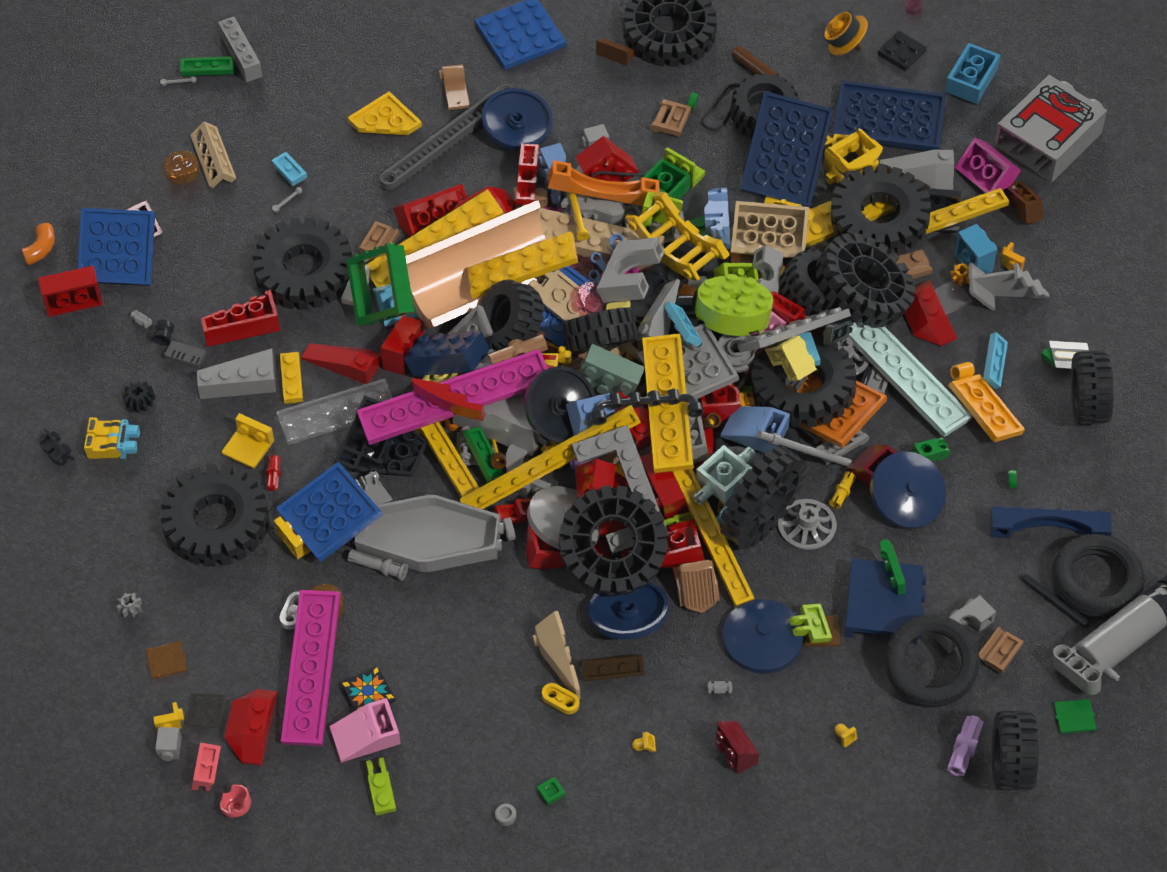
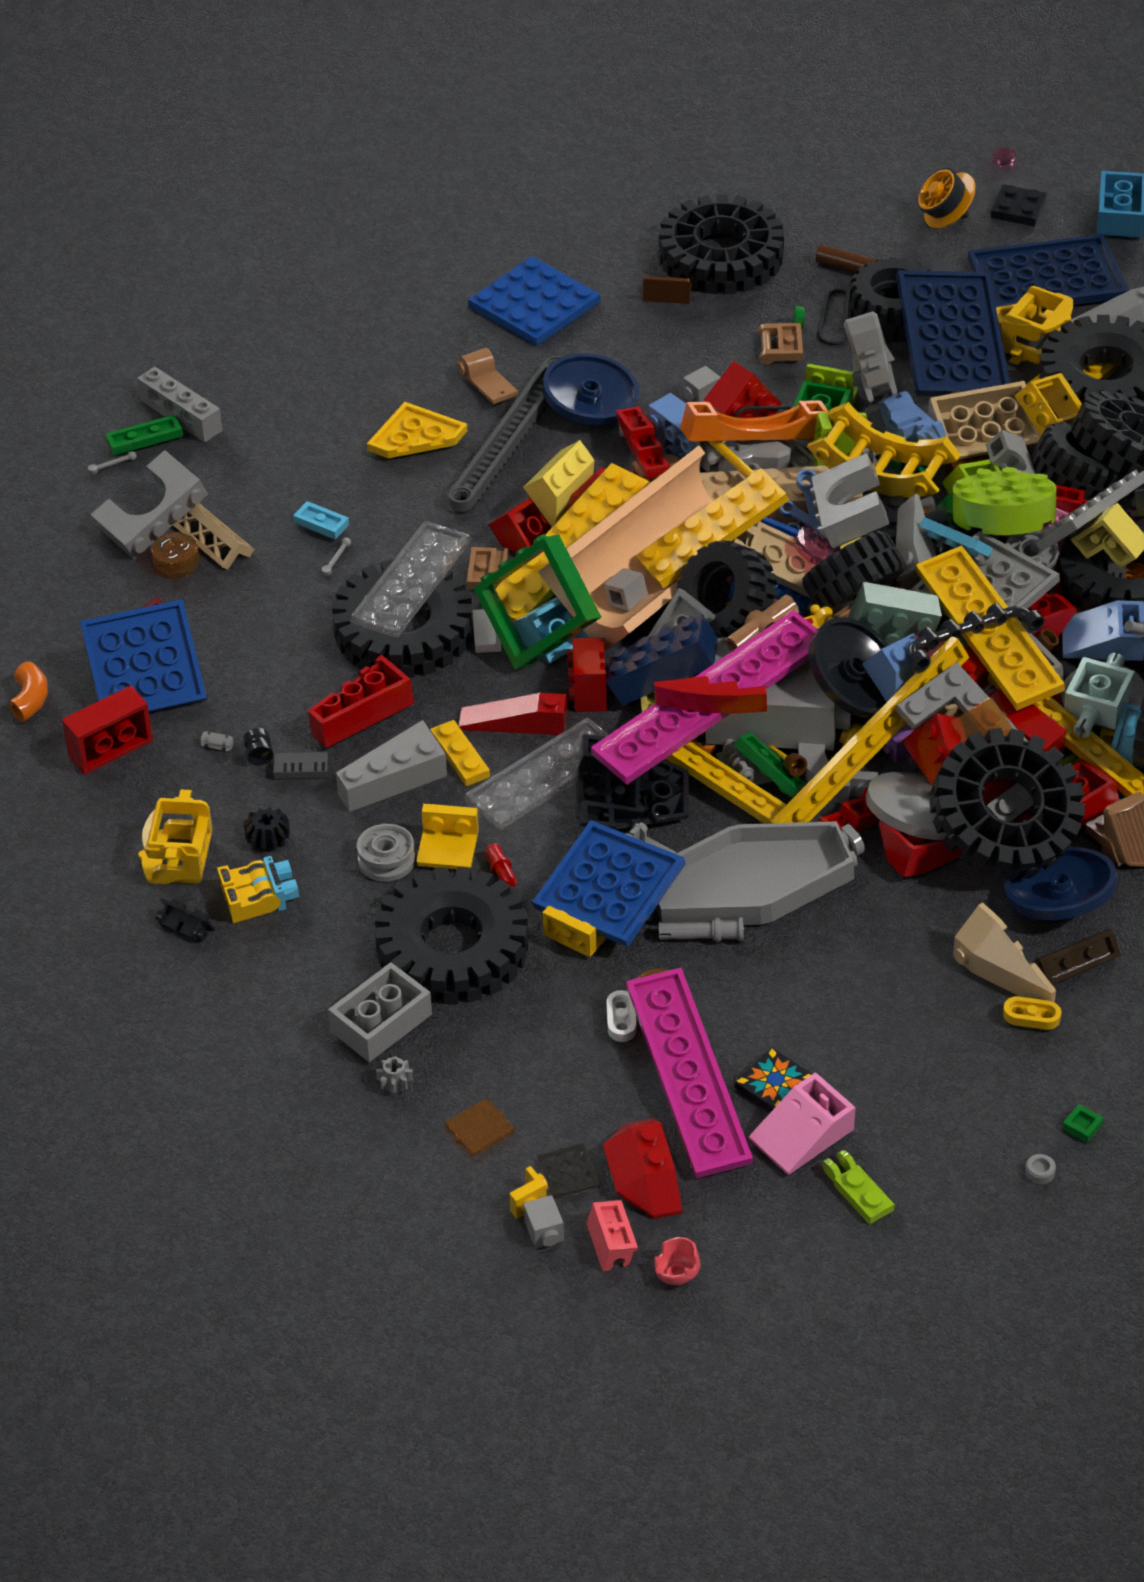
camera: 20 degrees left, 10 degrees down
(60, 387) = (157, 848): none -> yellow animal
(140, 557) = (380, 1012): none -> light grey brick
(201, 123) = (138, 532): none -> light grey arch
(204, 439) = (385, 852): none -> light grey wheel
(314, 238) = (410, 579): none -> clear plate
(448, 292) = (626, 589): none -> light grey brick
(454, 188) = (559, 479): none -> light yellow slope
(625, 474) = (981, 718): none -> clear orange piece
(712, 156) = (871, 355): none -> light grey animal
(830, 220) = (1054, 389): none -> yellow window

